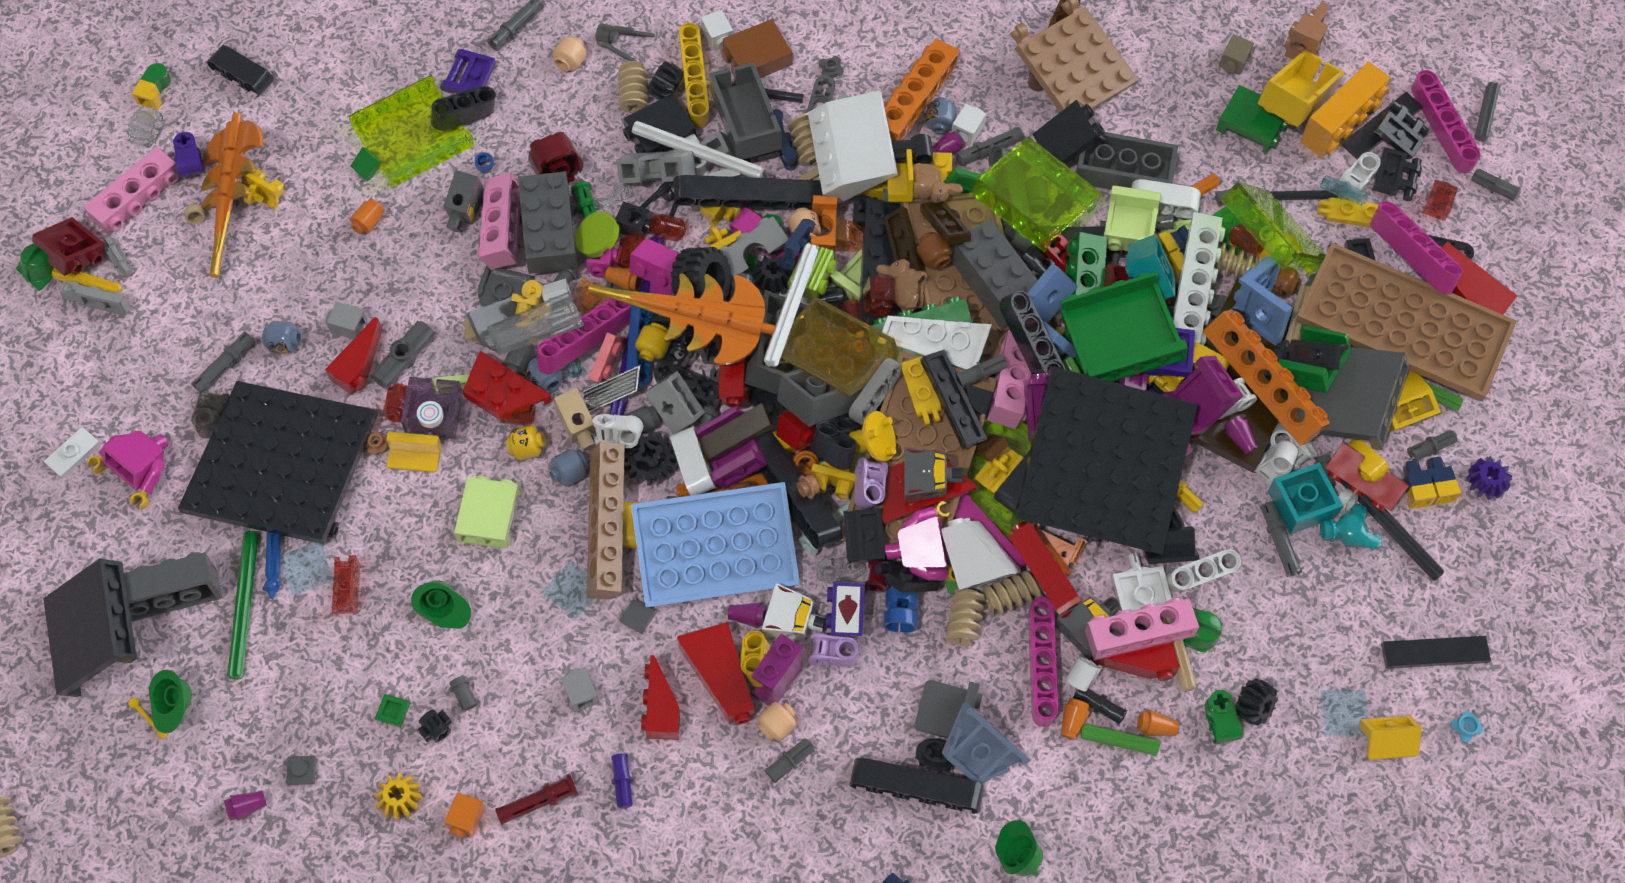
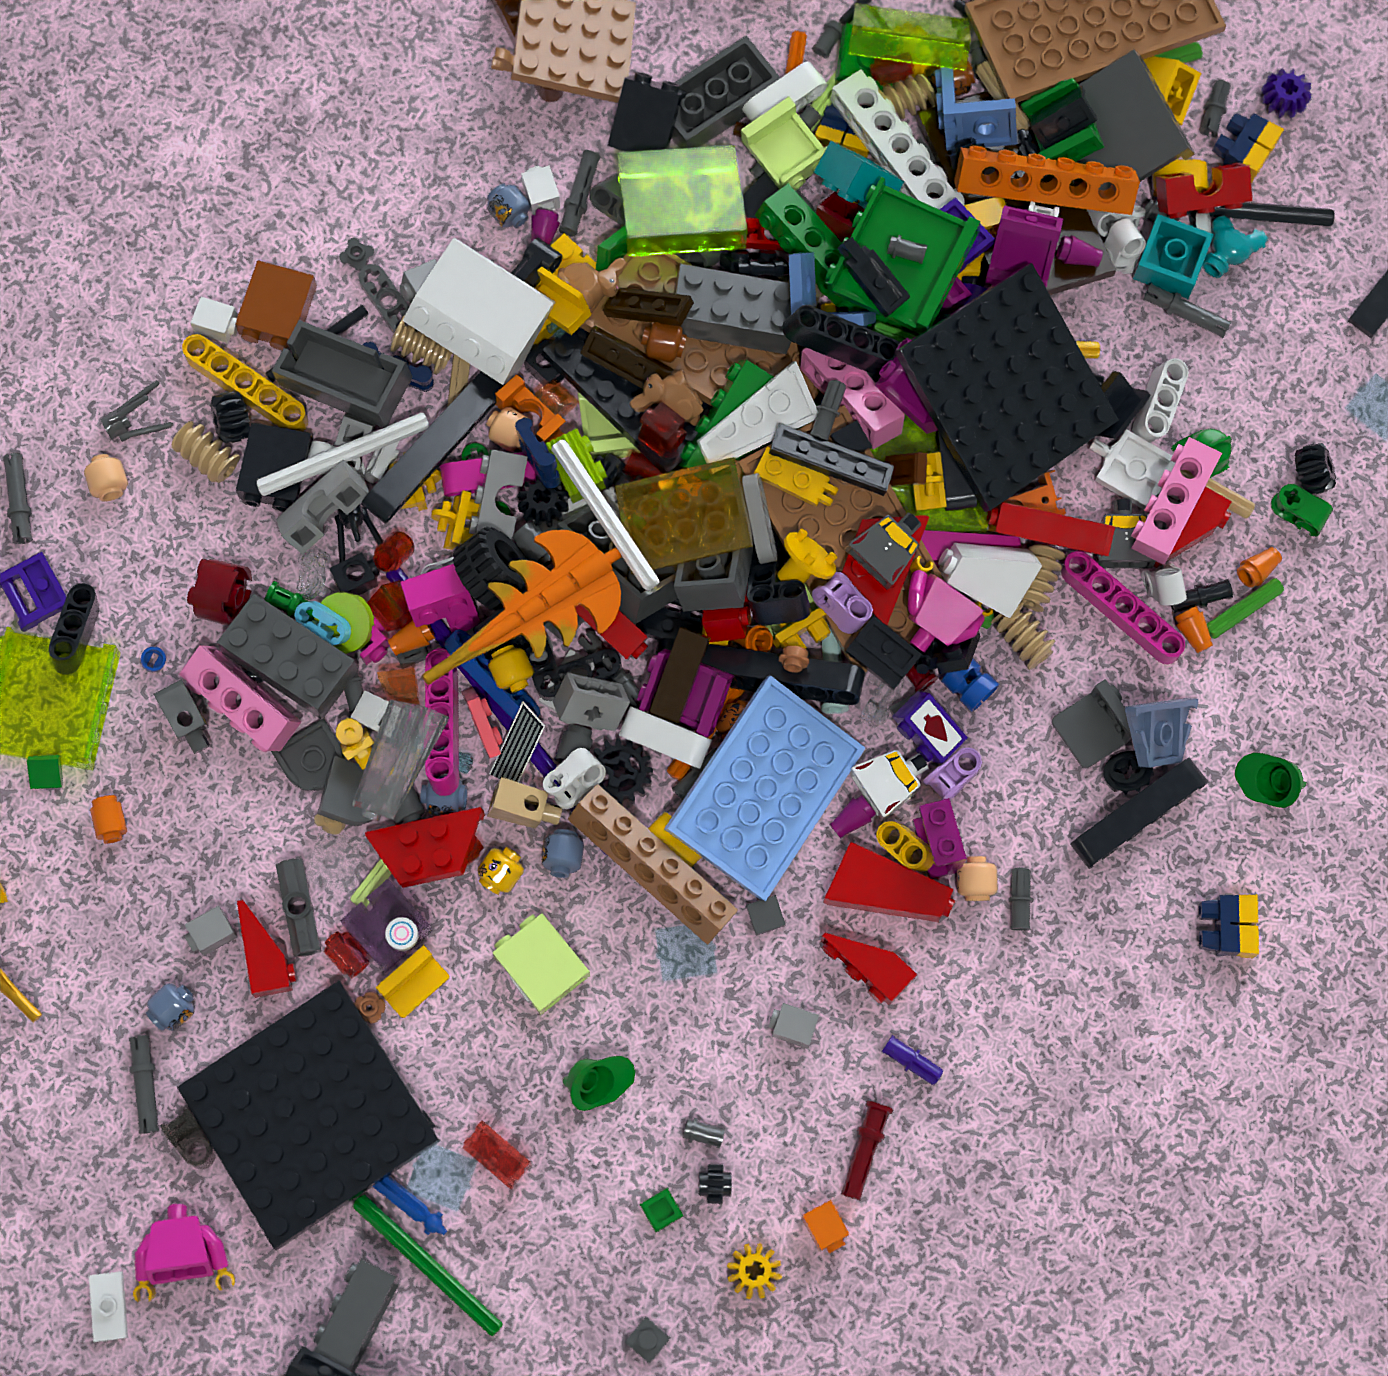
camera: 50 degrees left, 10 degrees up
(588, 221) = (325, 617): none -> medium azure beam
(919, 87) = (454, 167): orange brick -> none
(1089, 322) = (873, 277): none -> black hinge
(1128, 326) = (906, 249): none -> dark grey pin

